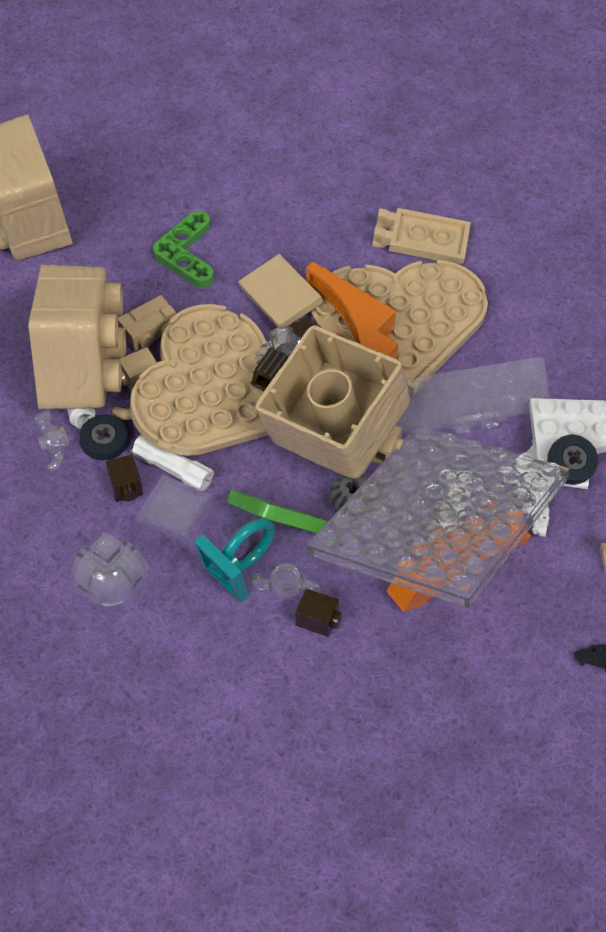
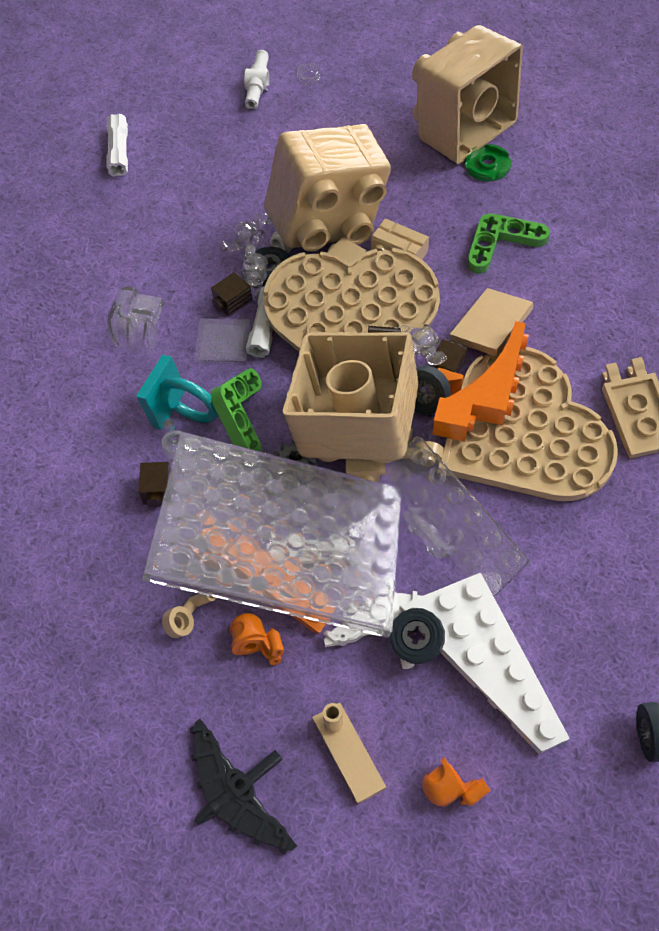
camera: 70 degrees right, 5 degrees up
(90, 232) = (490, 172): none -> green tile
(116, 441) = (254, 269): none -> clear piece
(473, 639) = (183, 616): none -> tan plate
(513, 585) = (251, 637): none -> orange piece

